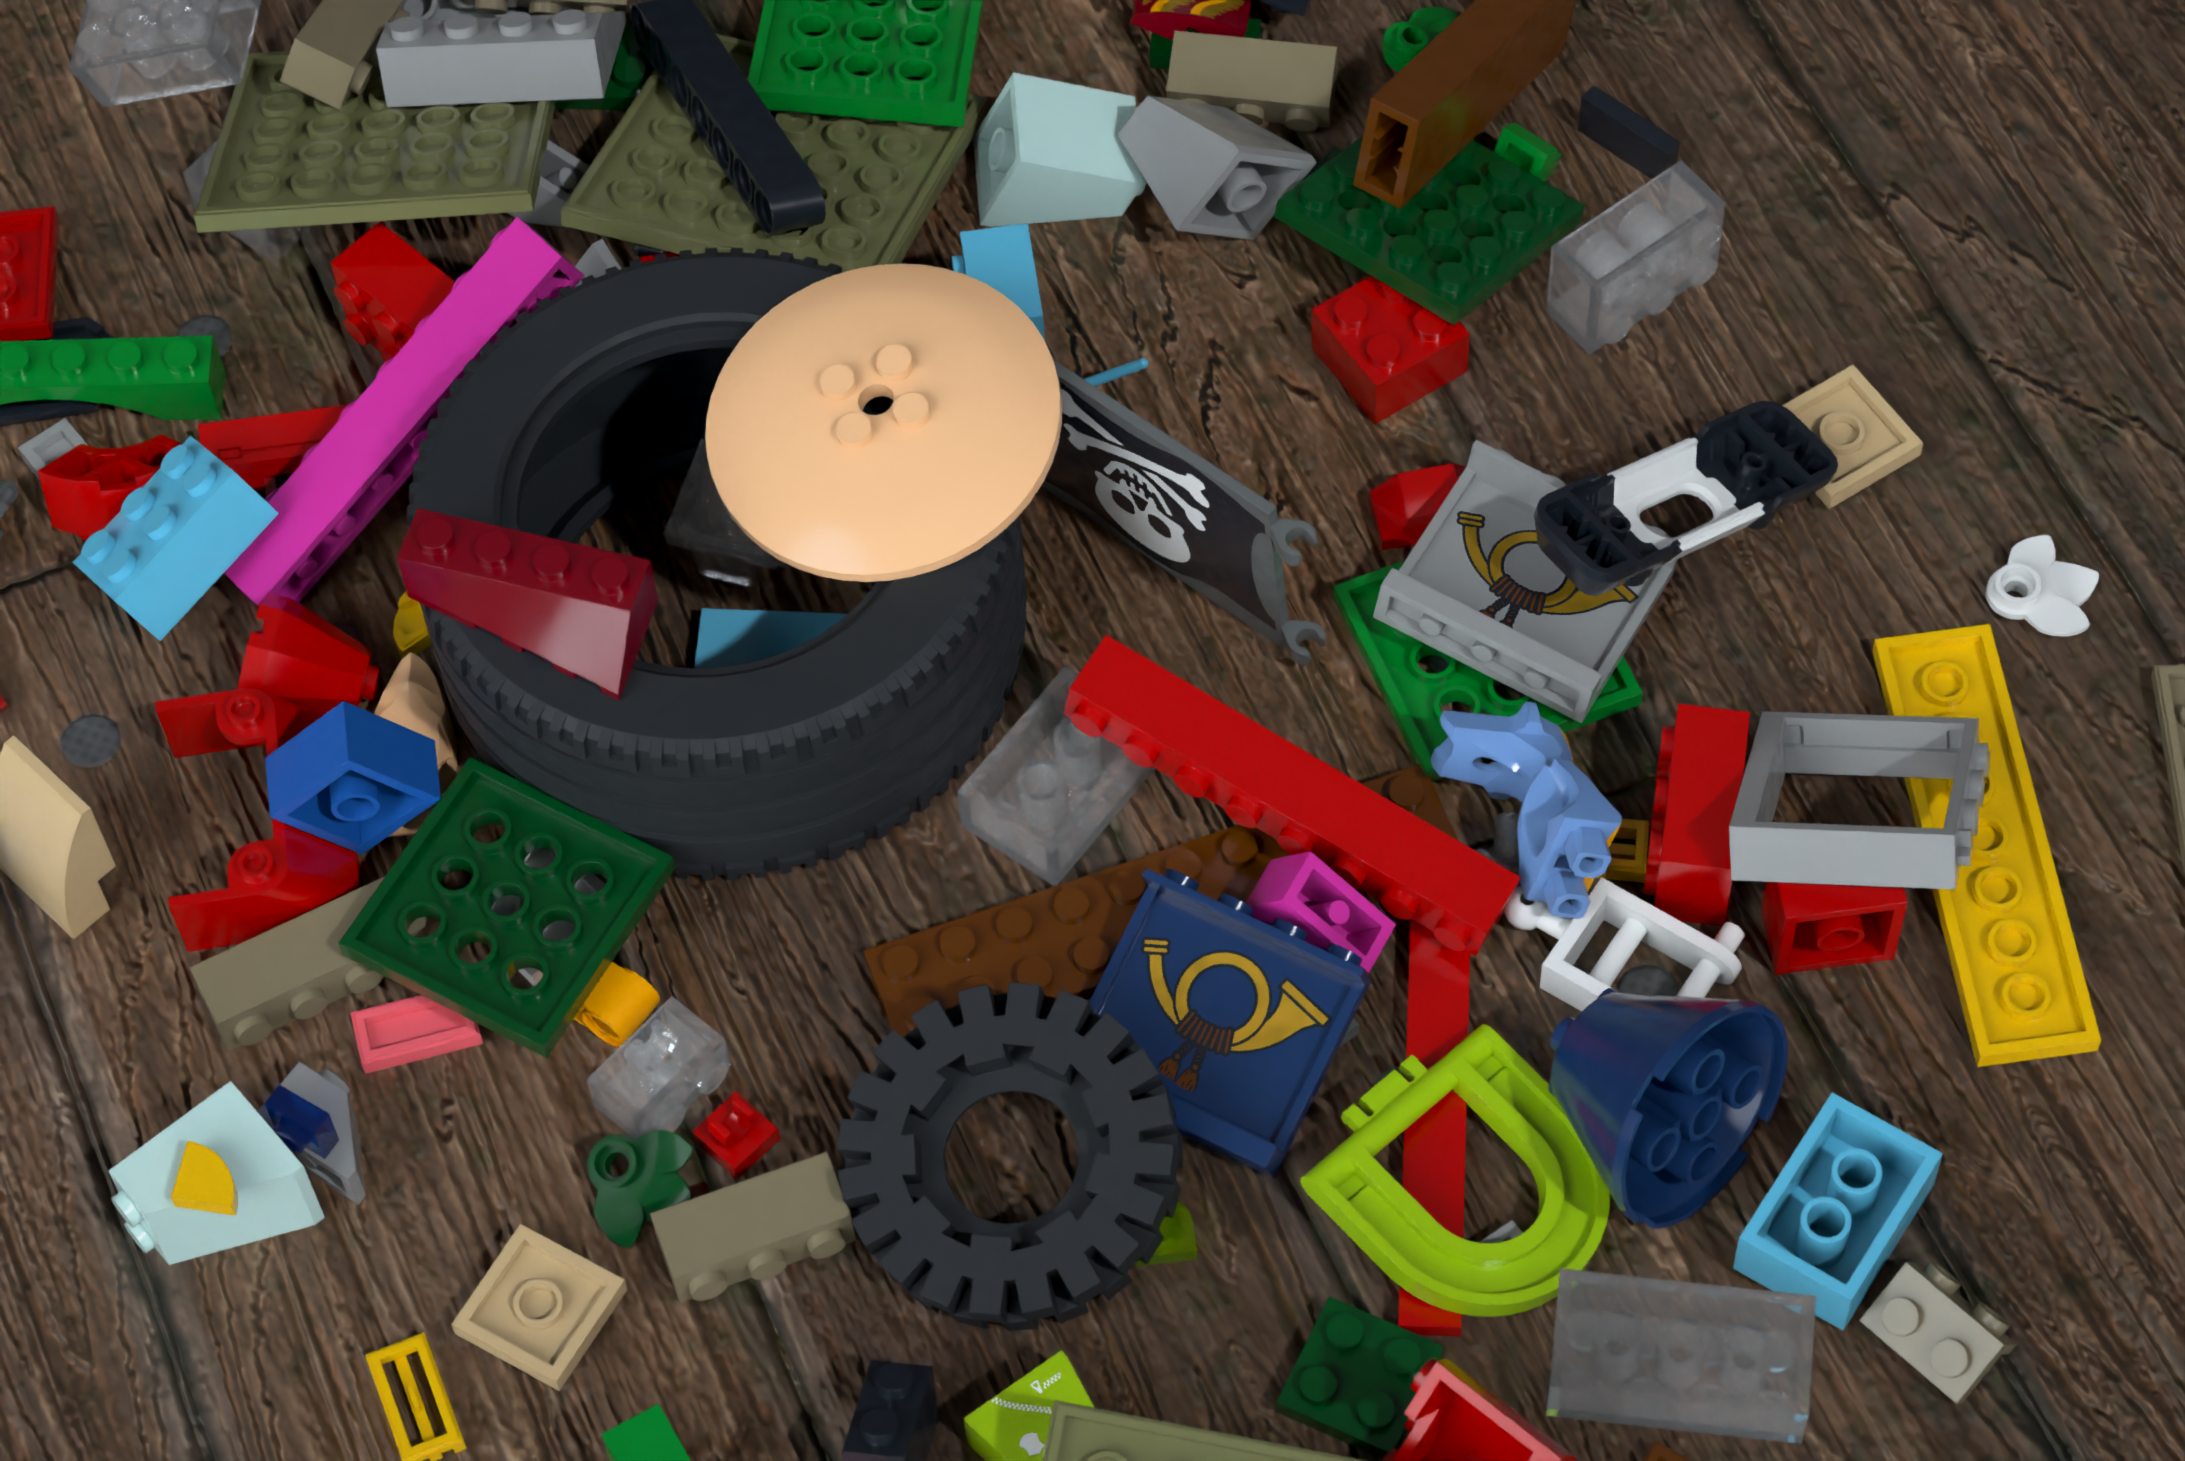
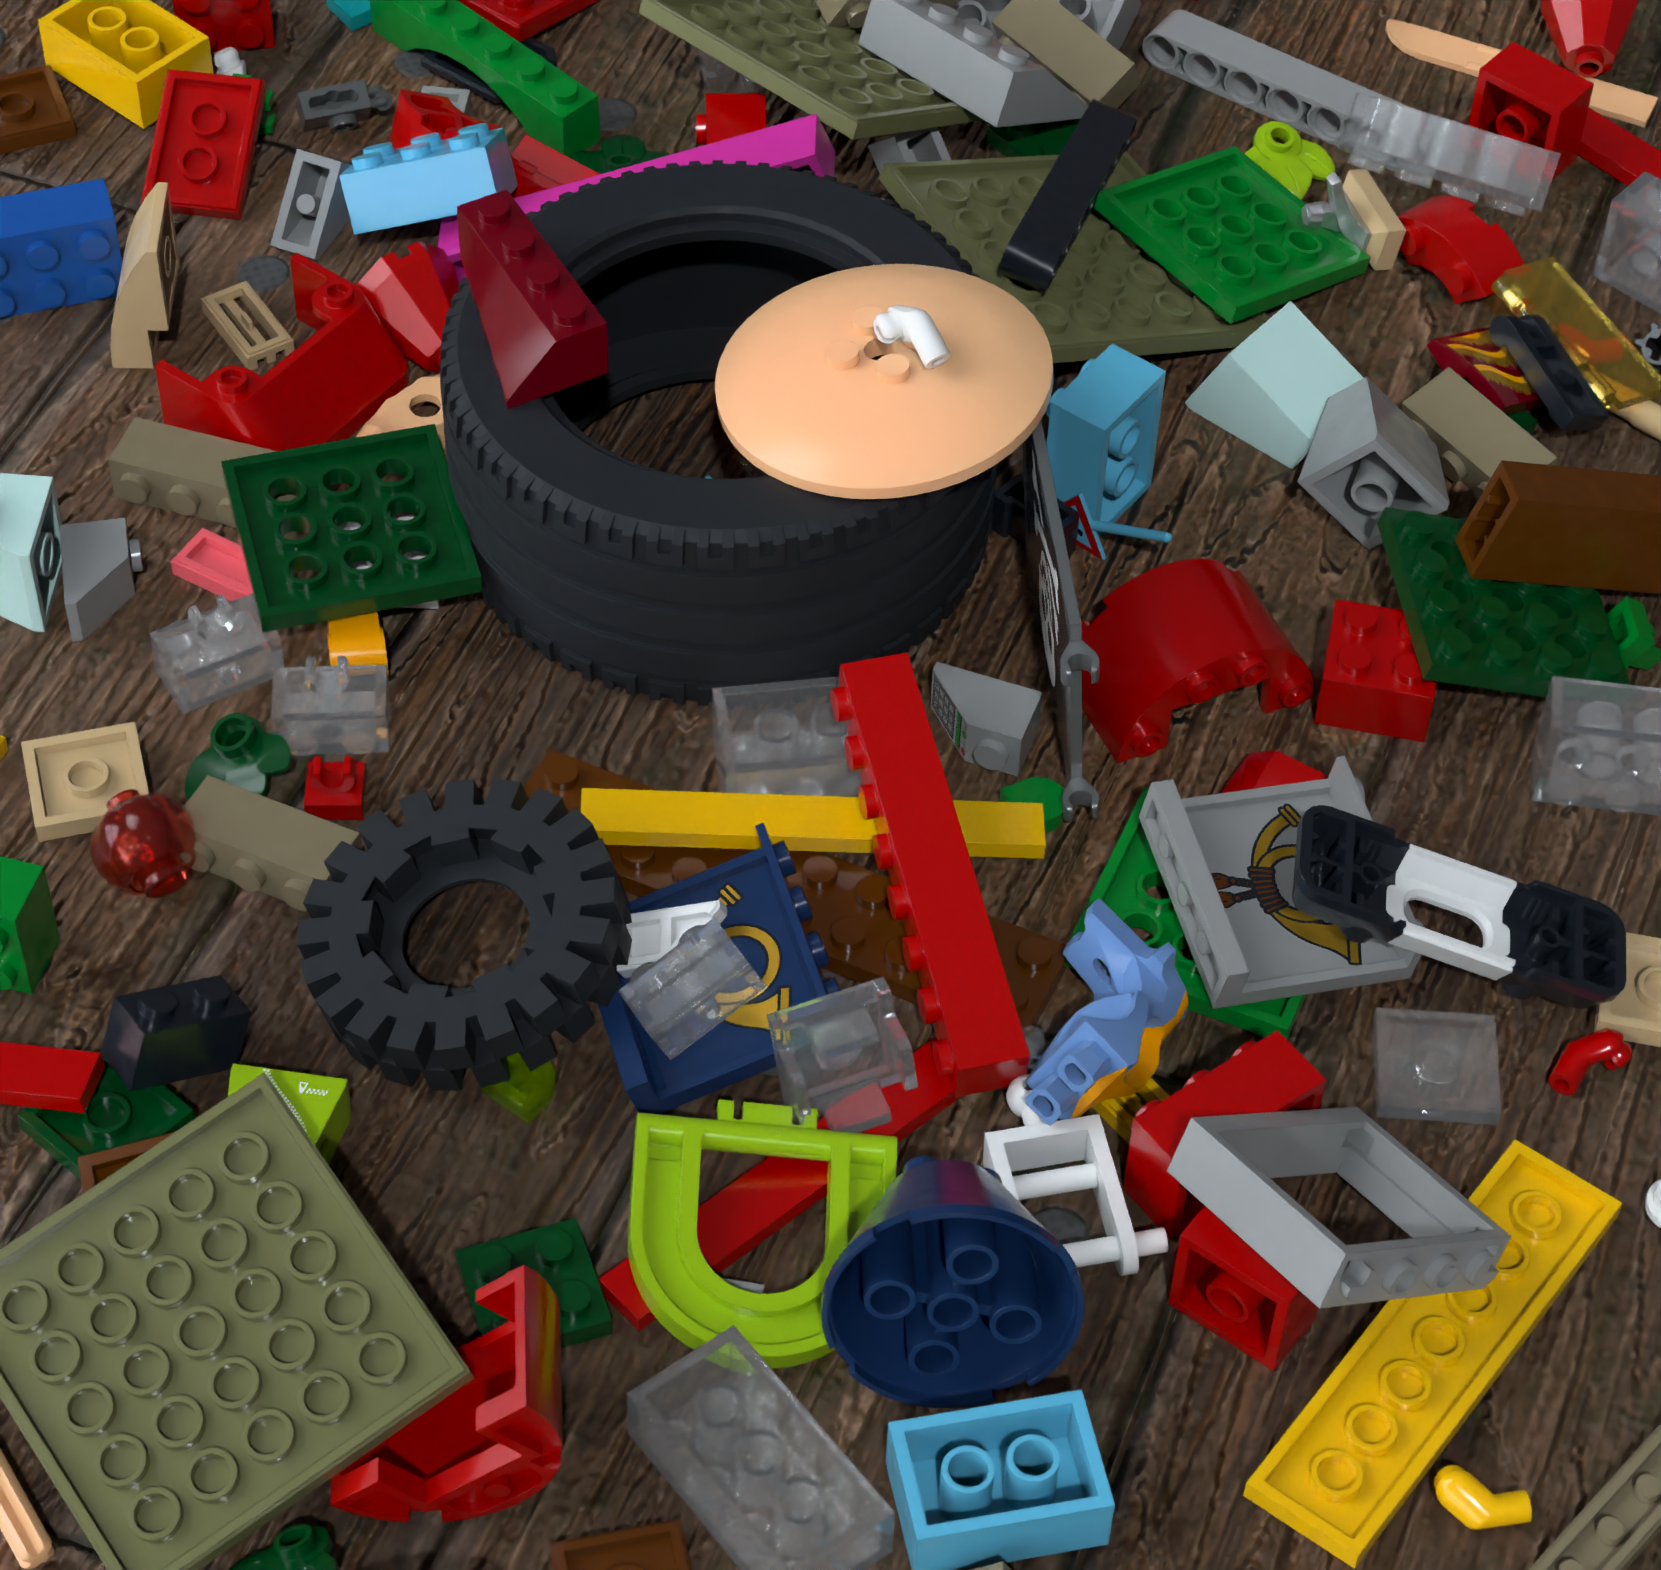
camera: 40 degrees right, 10 degrees down
(74, 641) = (311, 206): none -> light grey slope
(146, 821) = (261, 348): none -> tan tile
(278, 379) = (617, 153): none -> dark green plate
(301, 1123) = (67, 542): clear blue plate -> none
(352, 778) = (349, 377): blue brick -> none
(505, 1108) = (215, 653): none -> clear brick
(663, 1313) = (141, 843): none -> clear red plant
(901, 360) = (914, 327): none -> white arm
(1116, 855) = (799, 820): none -> yellow tile
(1156, 1014) = (659, 931): none -> white tile
(1161, 625) = (986, 717): none -> light grey slope
(1223, 1044) = (691, 988): none -> clear brick
(1262, 422) = (1179, 642): none -> red cylinder
(1264, 672) = (1038, 791): none -> green tile
(1322, 905) = (862, 949): dark pink brick -> none
(1385, 1004) = (841, 1054): none -> clear panel
(1754, 628) = (1436, 1066): none -> clear tile
(1840, 527) = (1580, 1054): none -> red arm
(2121, 932) = (1475, 1504): none -> yellow arm

